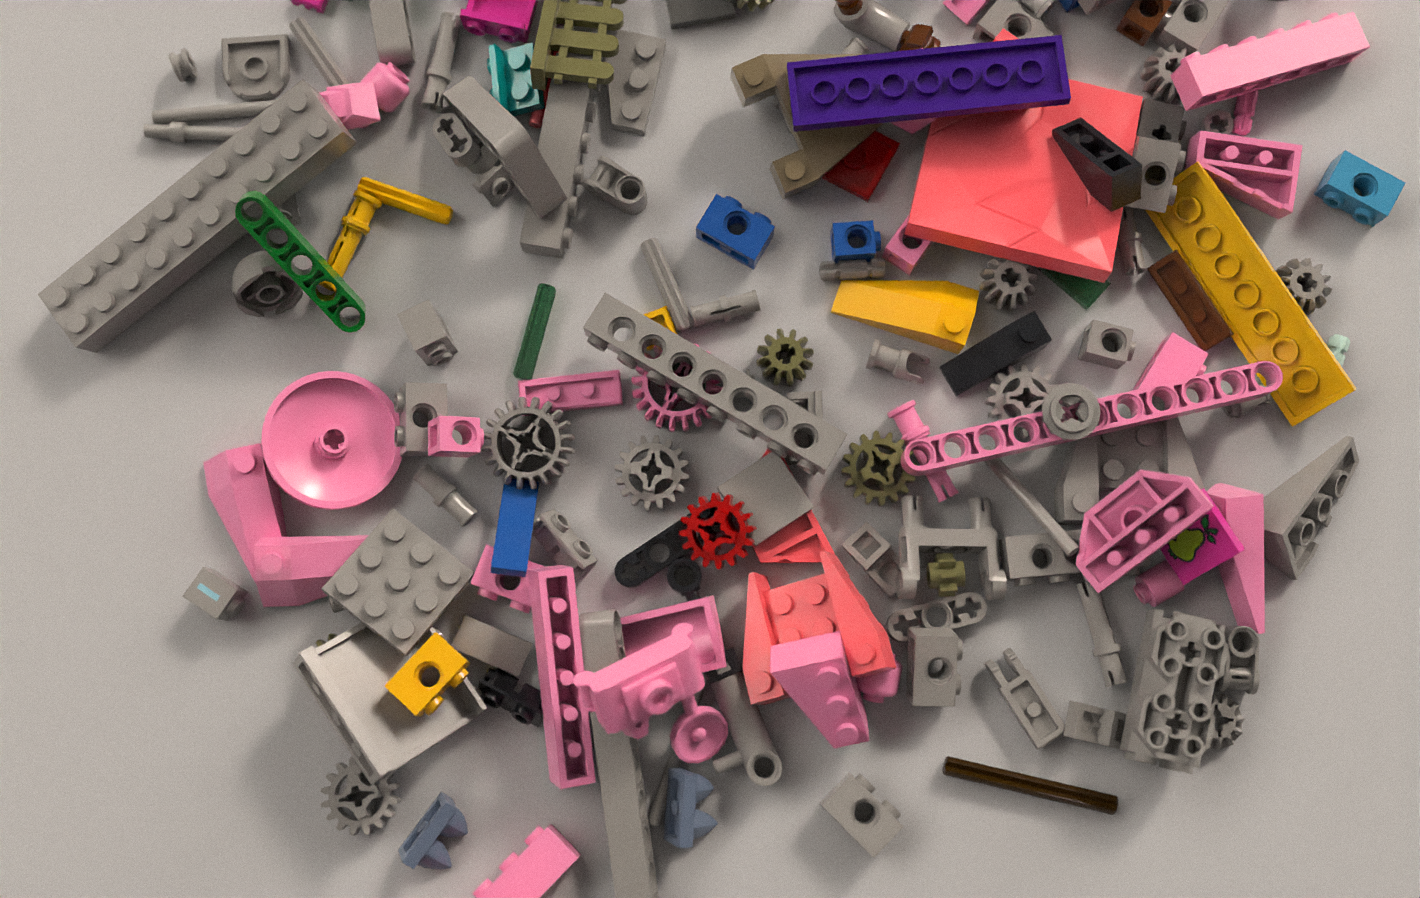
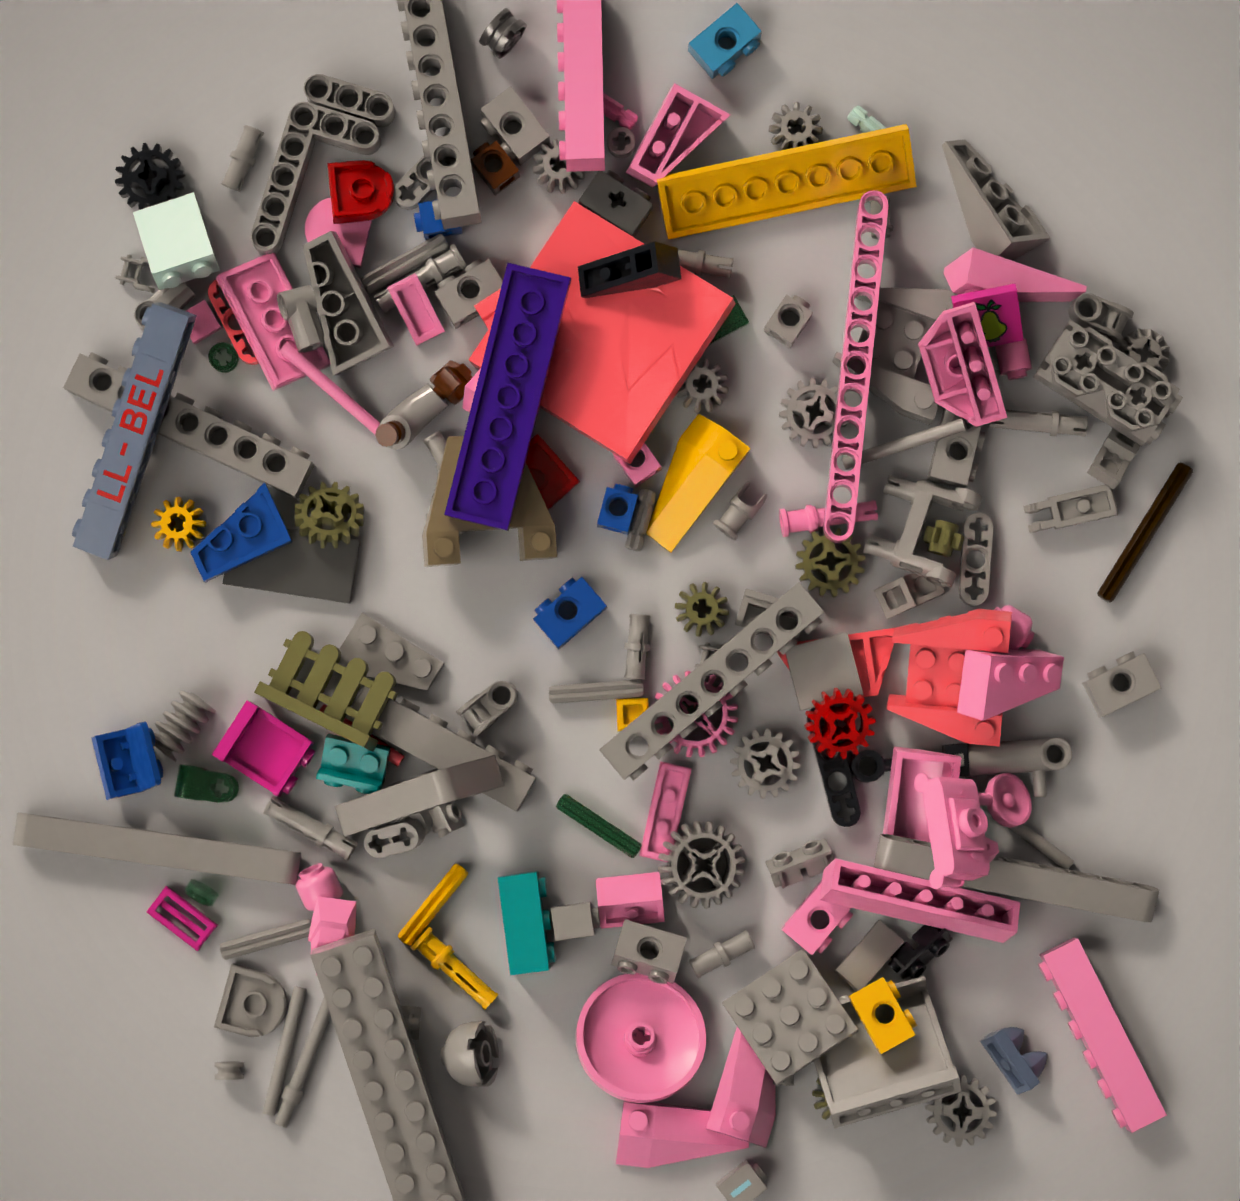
camera: 70 degrees left, 5 degrees up
(298, 245) = (460, 1016): green beam -> none
(407, 281) = (526, 923): none -> teal brick
(441, 440) = (674, 937): bright pink brick -> none
(470, 383) = (630, 898): none -> bright pink panel
(514, 530) = (776, 901): blue tile -> none
(682, 820) = (1073, 839): sand blue tile -> none
(923, 648) = (1000, 578): light grey brick -> none
(996, 353) = (763, 421): black slope -> none
(1087, 412) = (852, 370): light grey gear -> none
(1171, 159) = (639, 213): light grey brick -> none
(1173, 361) = (829, 273): bright pink slope -> none
(1190, 301) = (774, 230): reddish brown tile -> none

